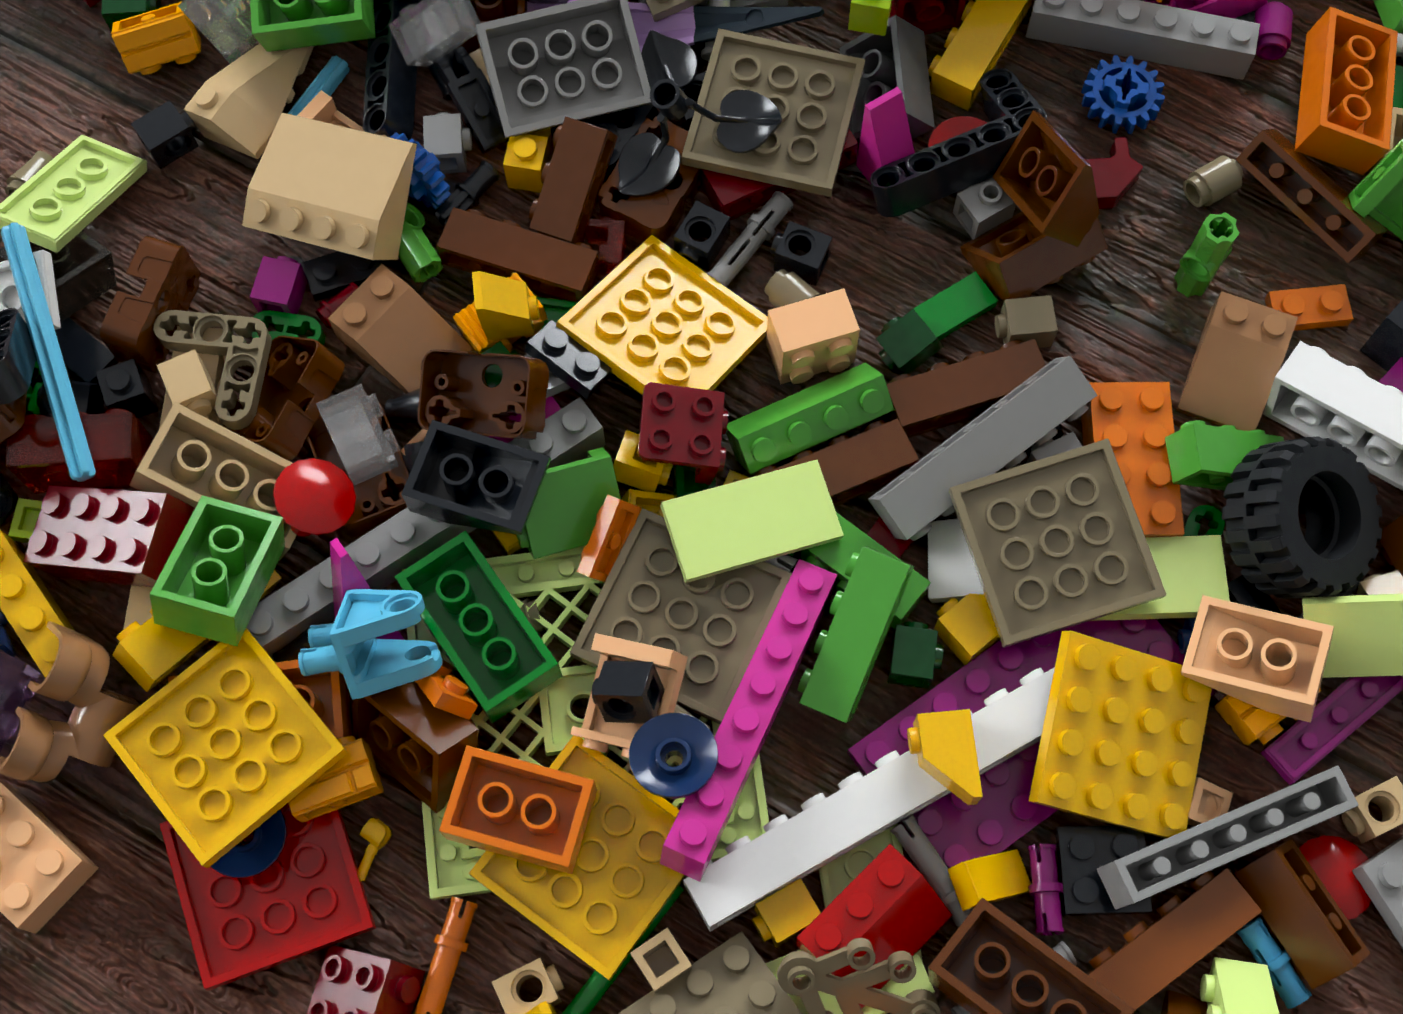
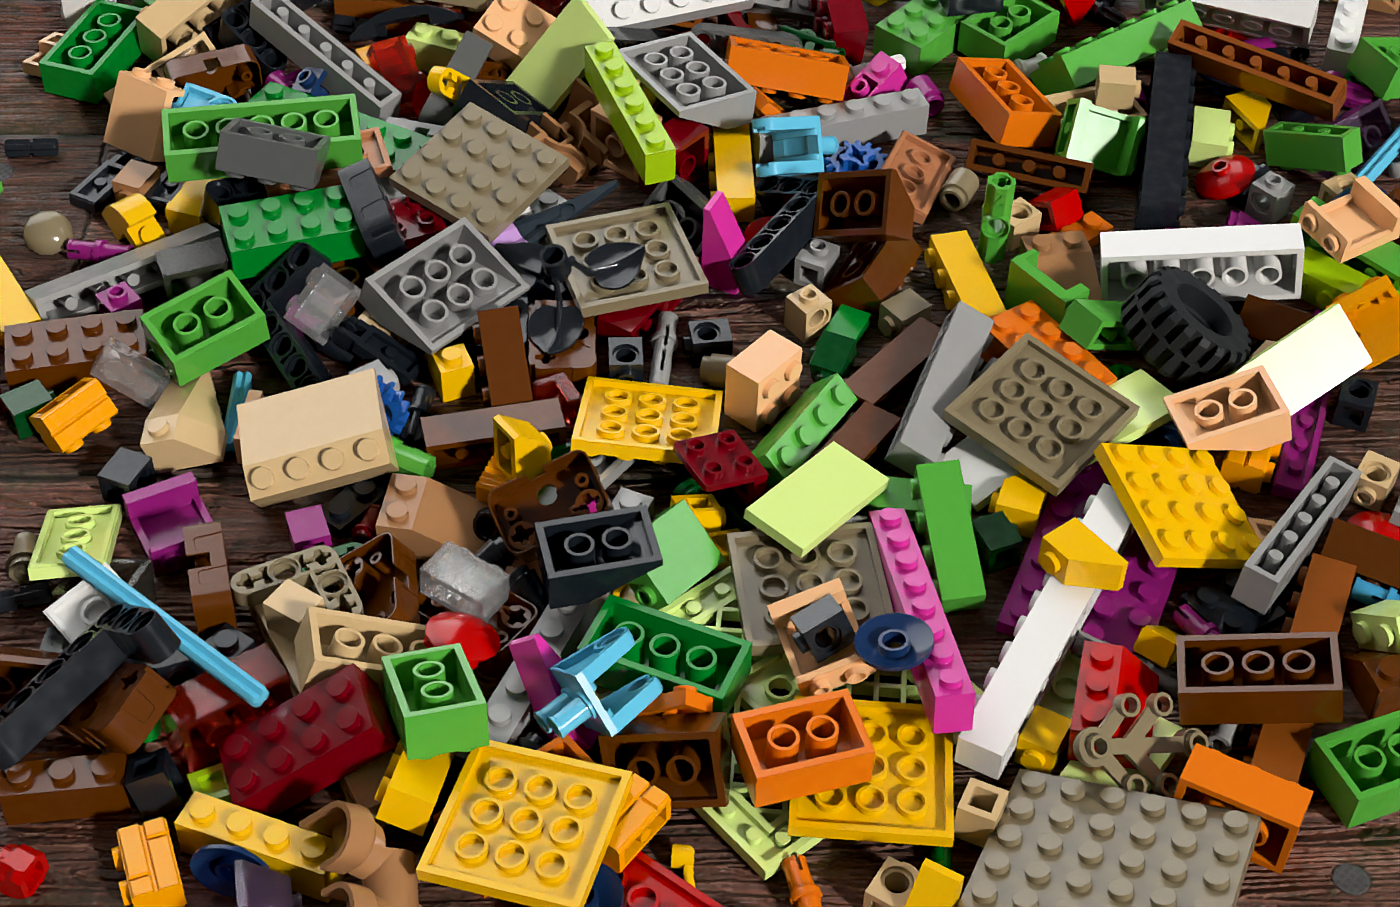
camera: 35 degrees left, 25 degrees down
(177, 205) = (158, 519): none -> magenta panel
(568, 359) = (610, 463): plate -> none
(609, 534) = (716, 549): orange plate -> none
(927, 267) = (807, 312): none -> tan brick
(1059, 50) = (796, 145): none -> medium azure piece
(1125, 311) = (961, 273): none -> yellow brick
(1169, 141) = (921, 170): none -> nougat tile
(1174, 365) = (1029, 283): none -> bright green panel
(1238, 273) = (1024, 221): none -> tan brick
(1301, 265) = (1059, 208): none -> red brick

